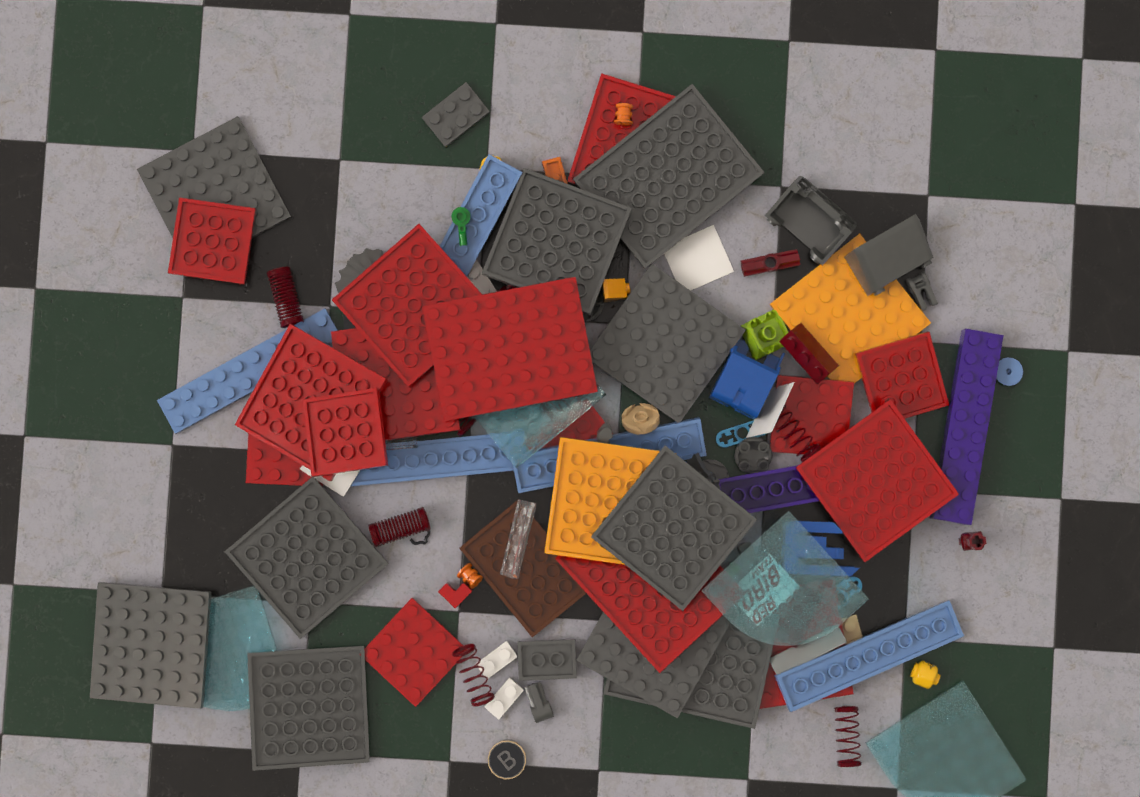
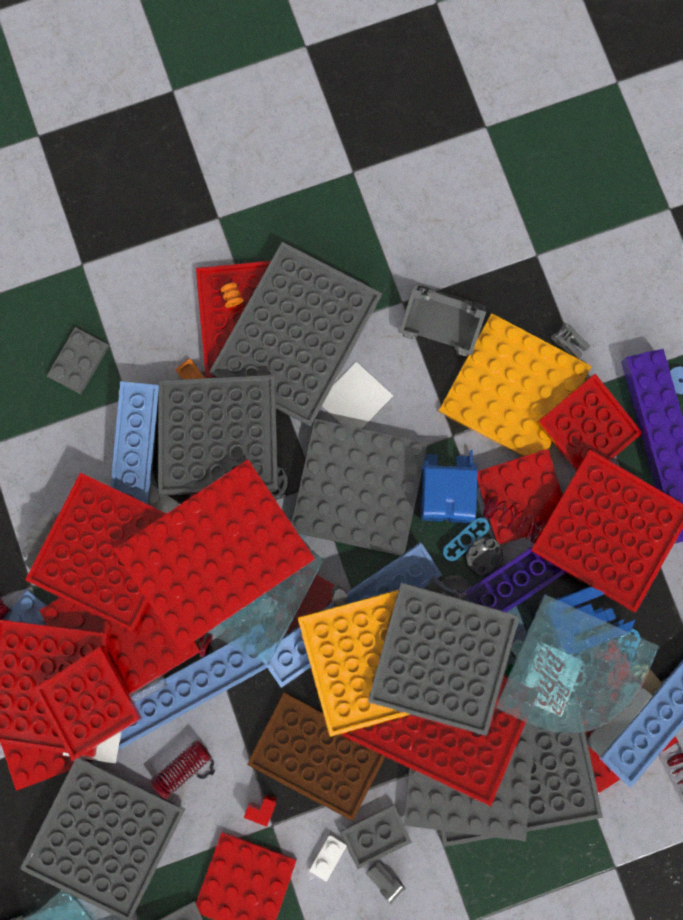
camera: 25 degrees left, 5 degrees down
(461, 217) = (119, 450): green plate -> none
(470, 576) = (268, 787): orange bush -> none
(471, 647) = (328, 901): dark red piece -> none
(504, 698) = (350, 892): white plate -> none
(518, 539) = (299, 732): clear plate -> none
(615, 289) = (291, 457): light orange slope -> none
(640, 418) = (366, 567): tan tile -> none
(764, 334) = (447, 440): lime slope -> none
(770, 411) = (485, 507): white sticker -> none
(782, 261) = (432, 367): dark red piece -> none
(809, 353) = (495, 439): dark red brick -> none
(890, 255) = (528, 320): dark grey windscreen -> none

